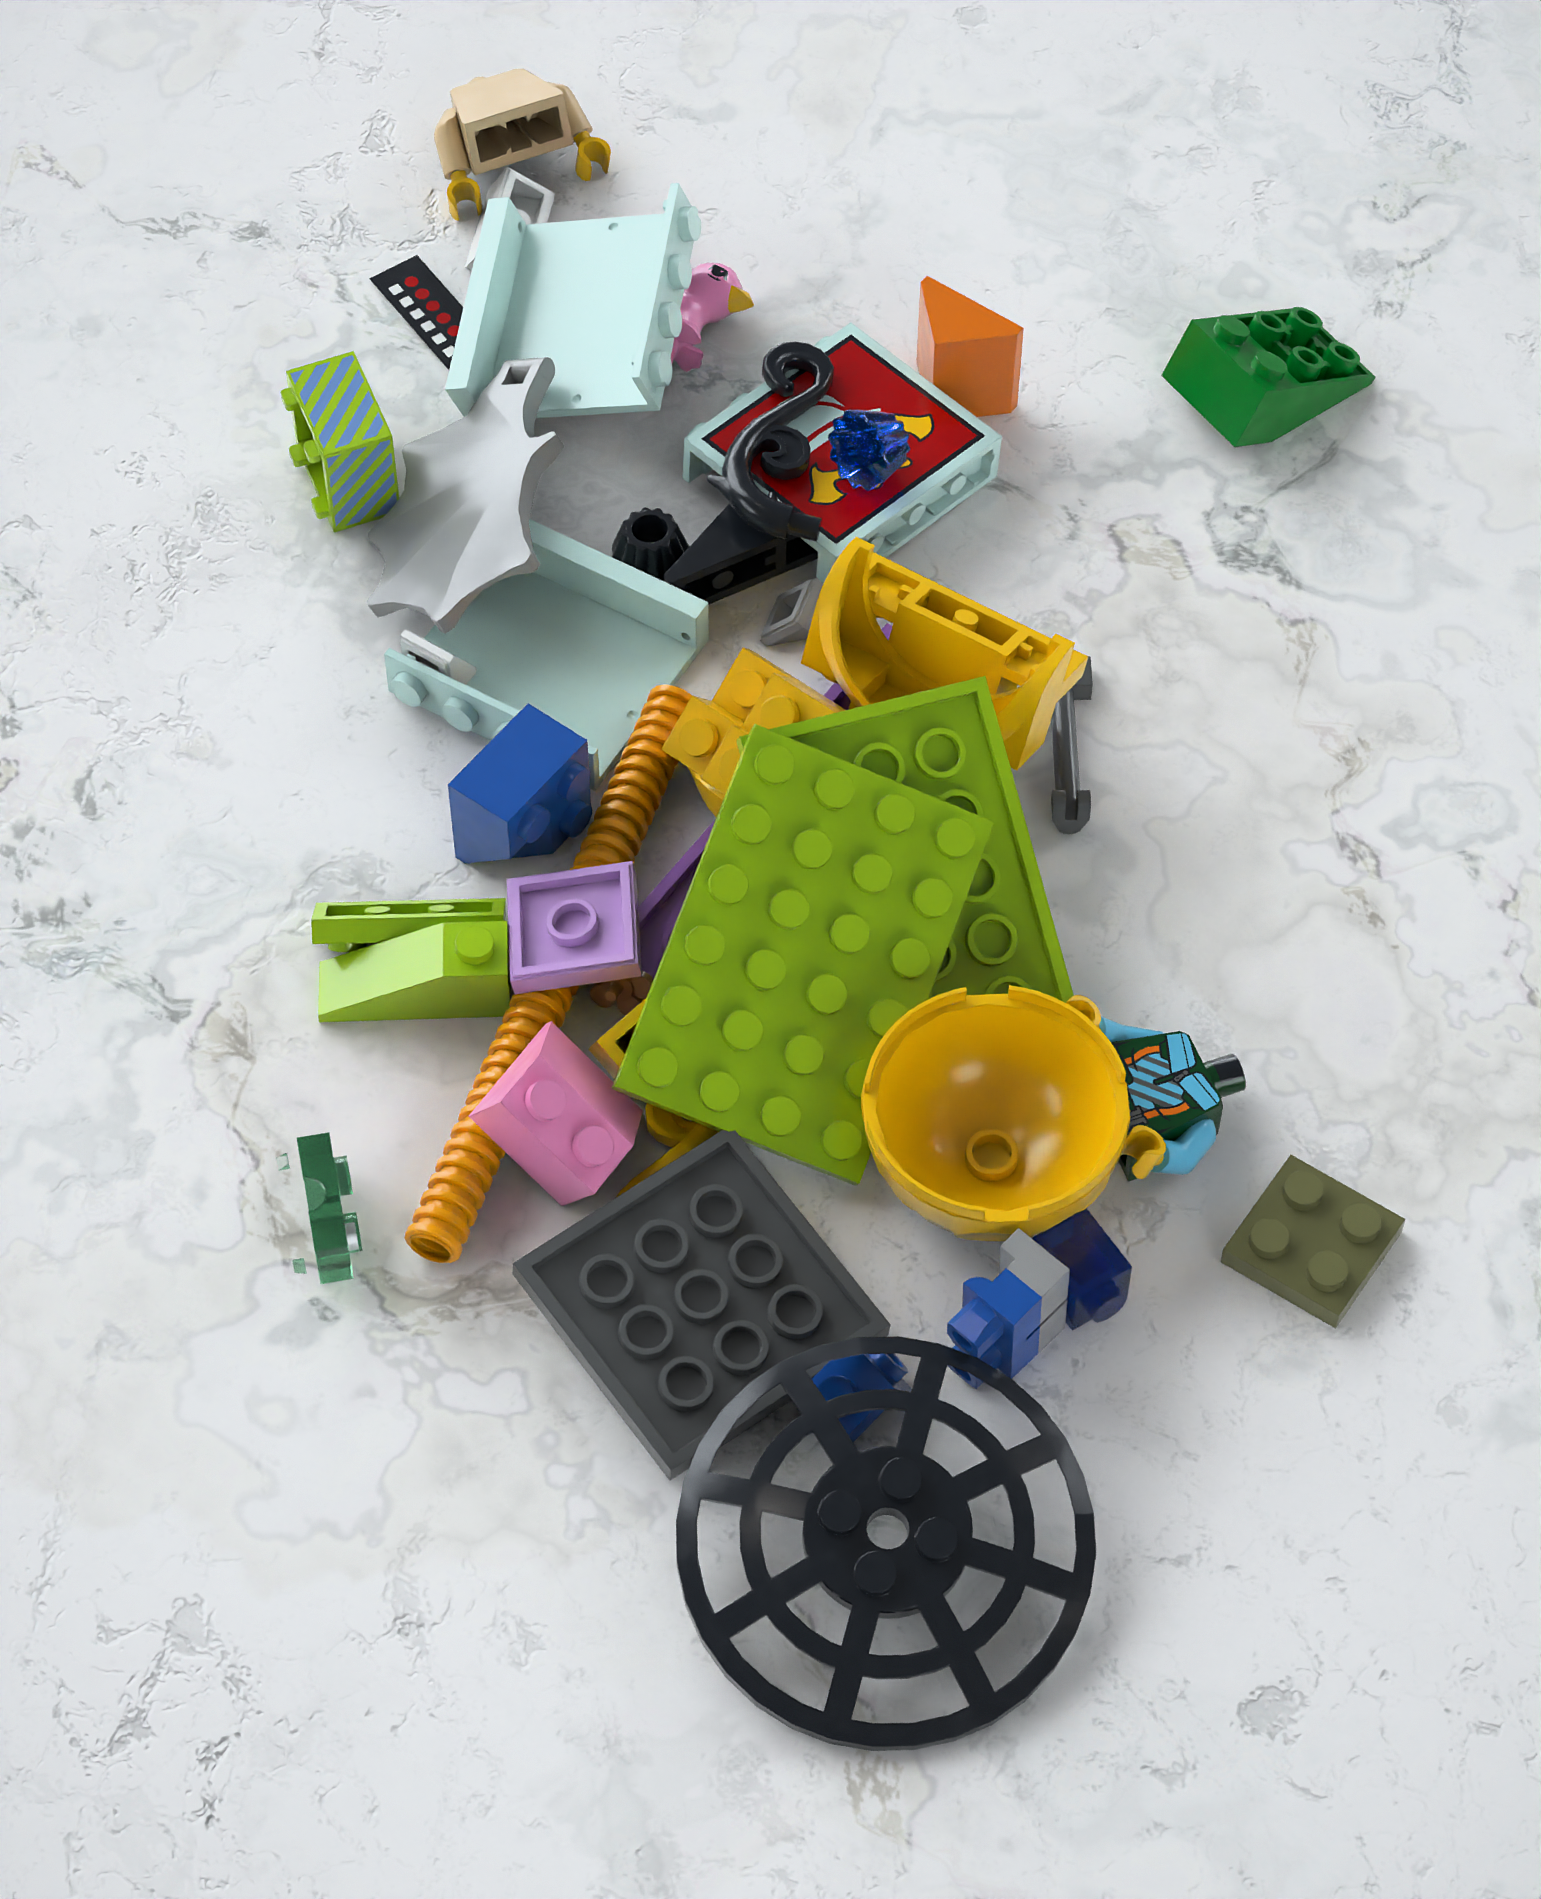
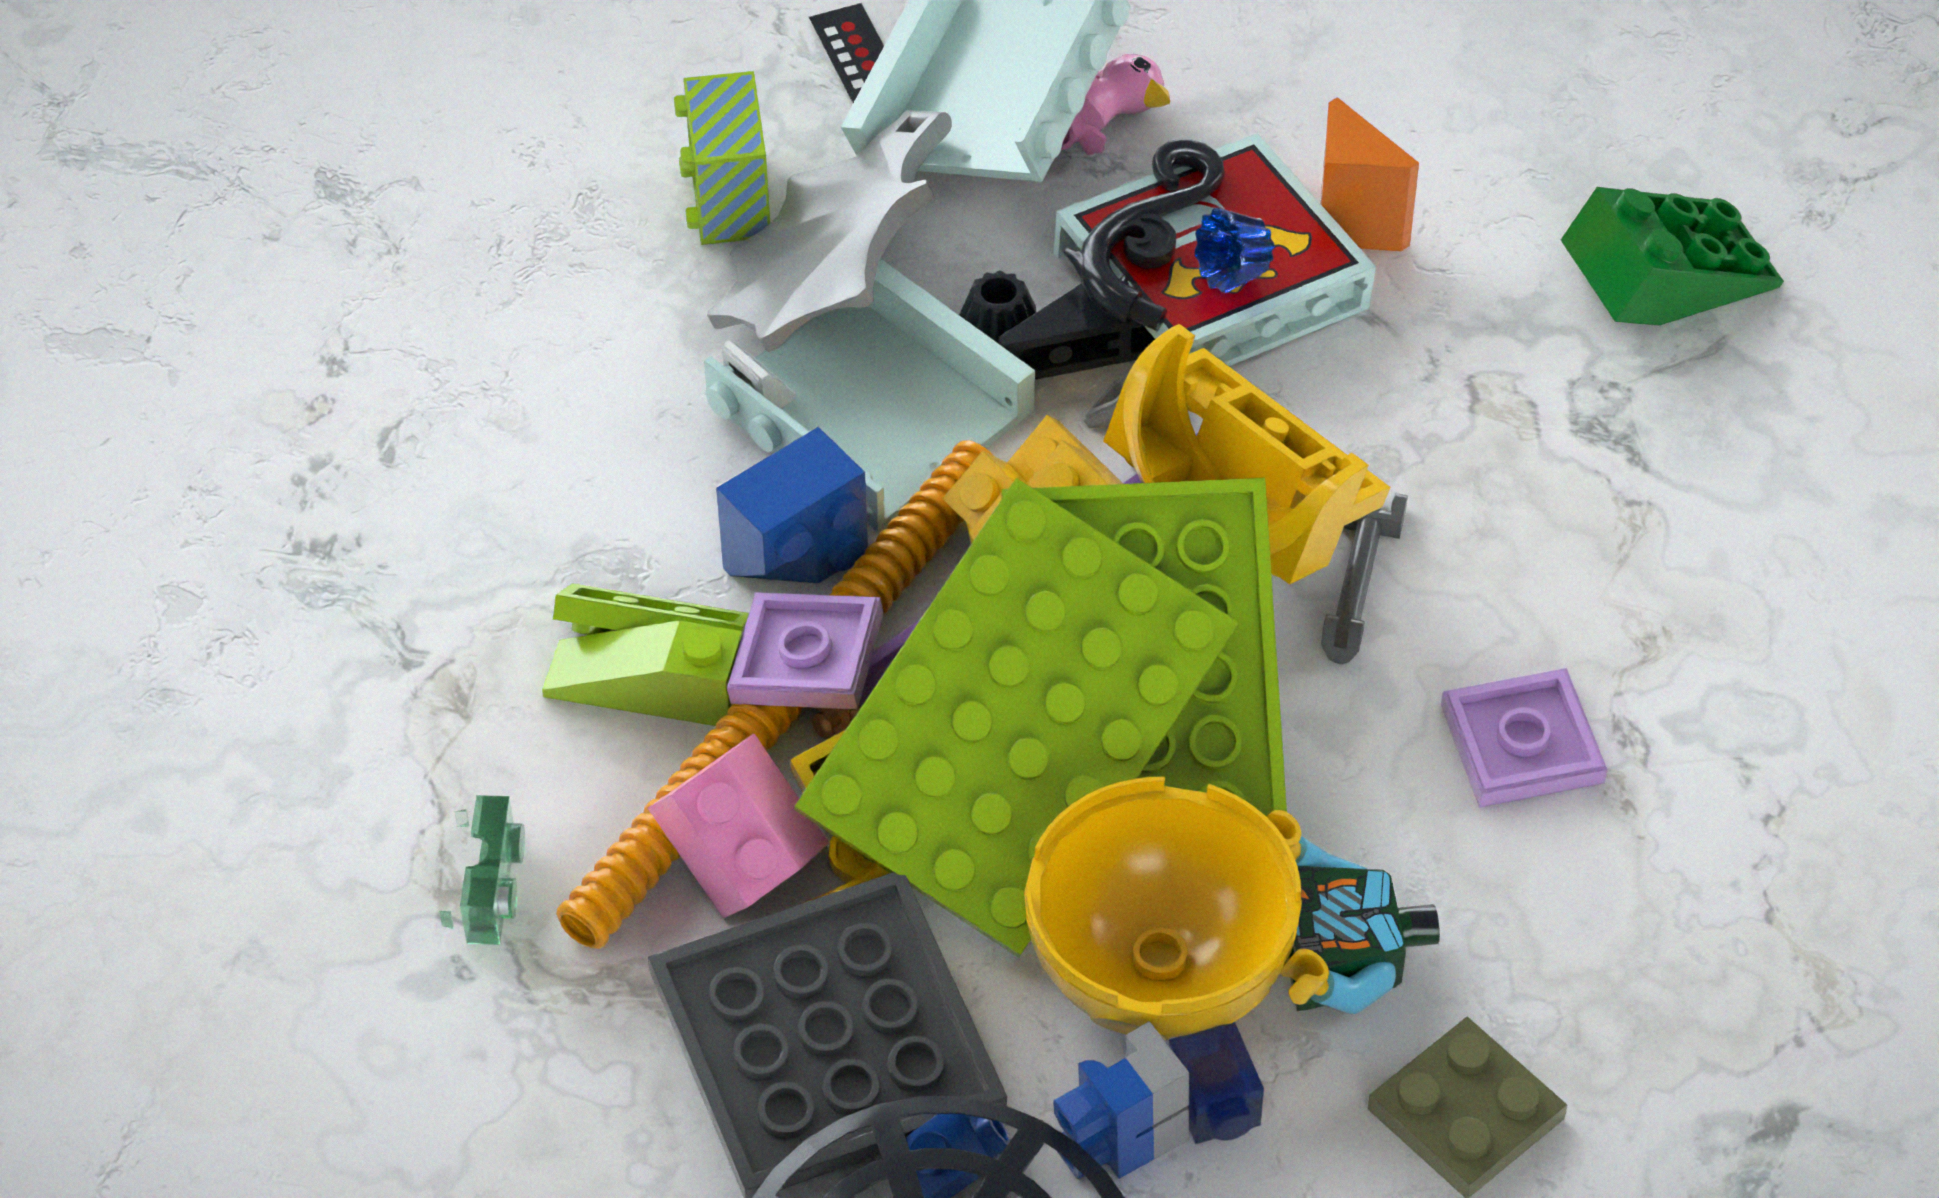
camera: 15 degrees right, 5 degrees down
(1262, 872) = (1523, 737): none -> lavender tile

